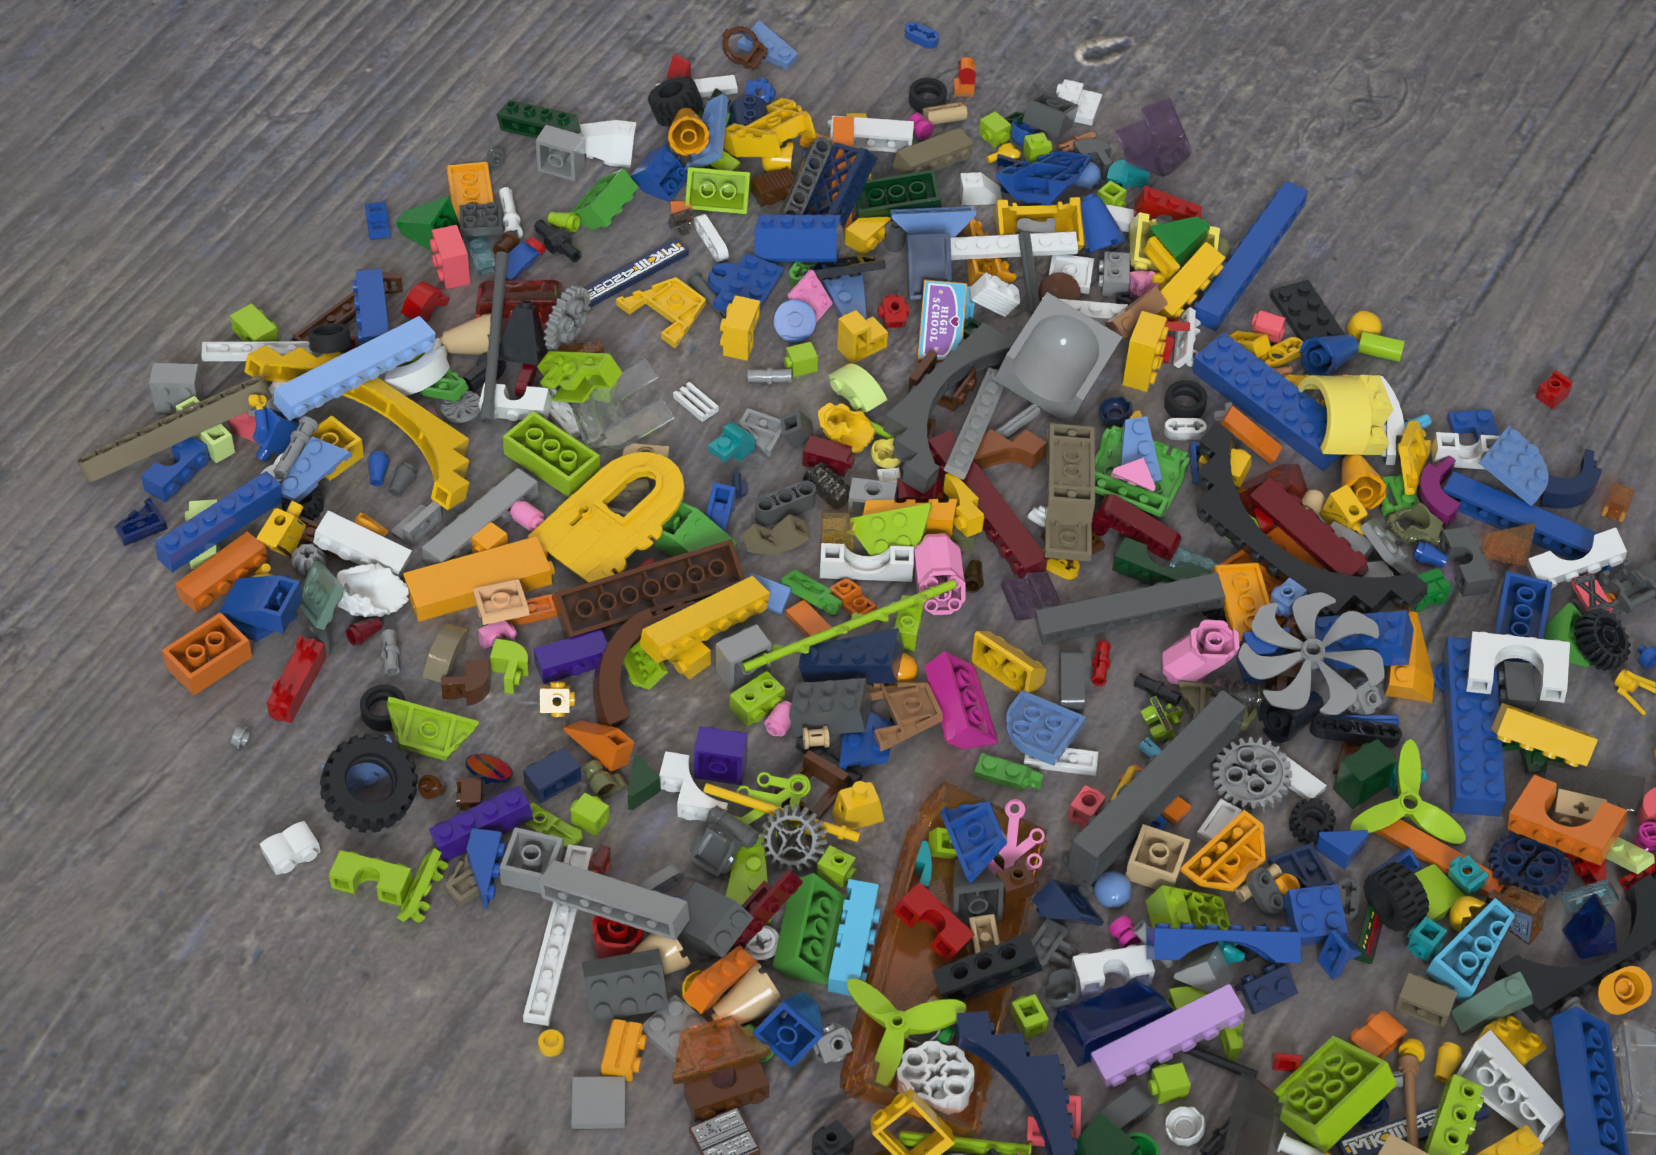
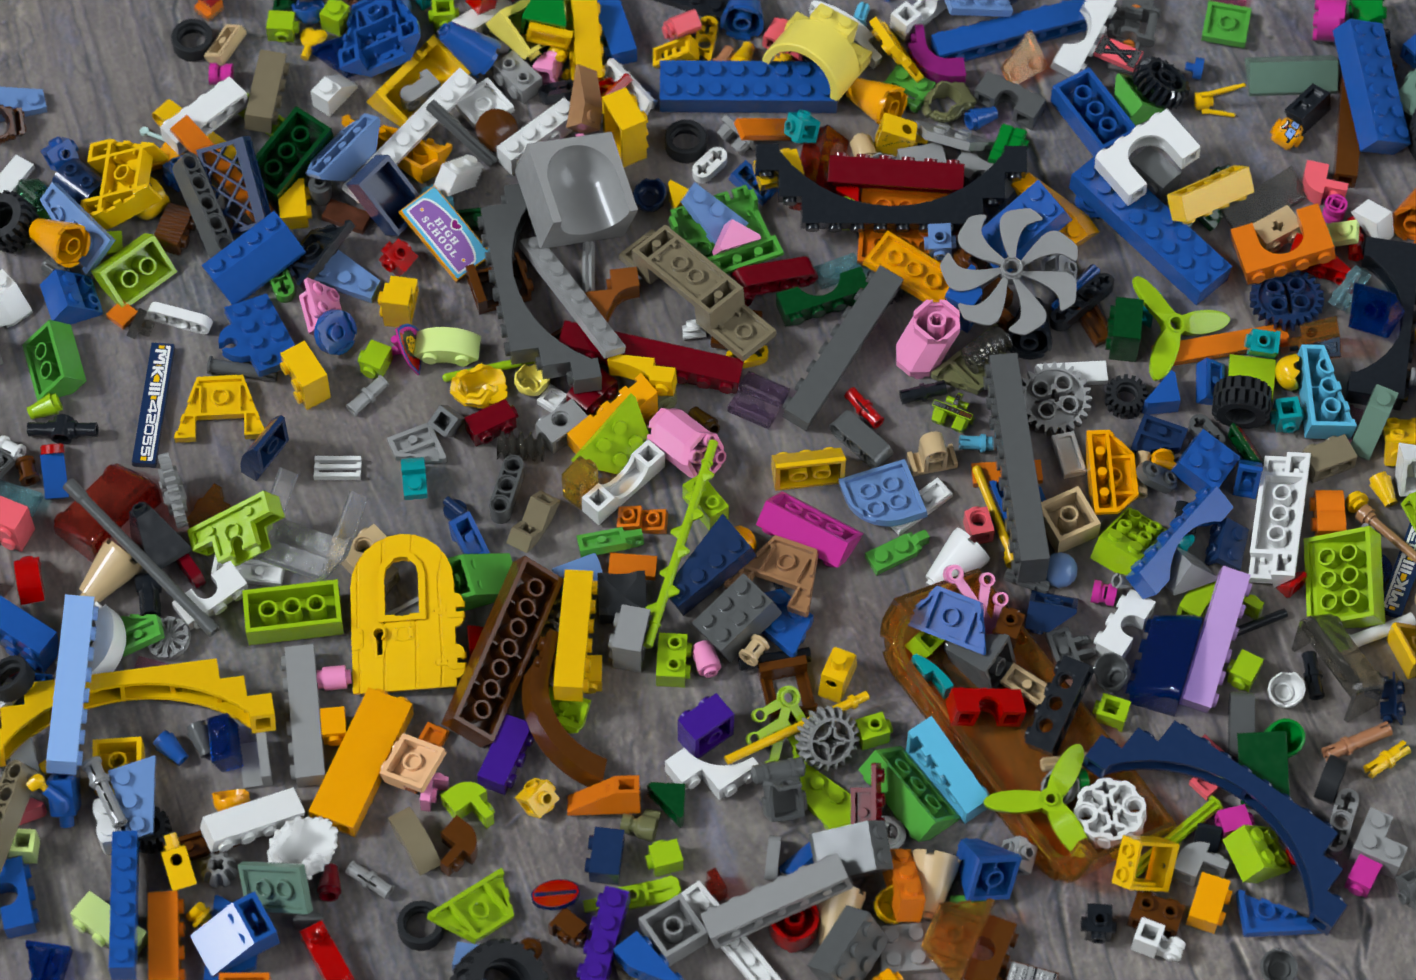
camera: 45 degrees left, 10 degrees up
(410, 492) = (224, 742): none -> clear blue brick
(658, 343) = (265, 448): none -> dark blue slope
(778, 625) = (618, 590): none -> black brick
(830, 359) = (405, 344): none -> shield
(895, 266) = (339, 212): none -> copper tile
(1045, 810) = (957, 551): none -> white cone
(1110, 731) = (932, 455): none -> tan pin
(1277, 458) = (802, 127): none -> teal brick
(1327, 1001) = (1279, 518): none -> white slope

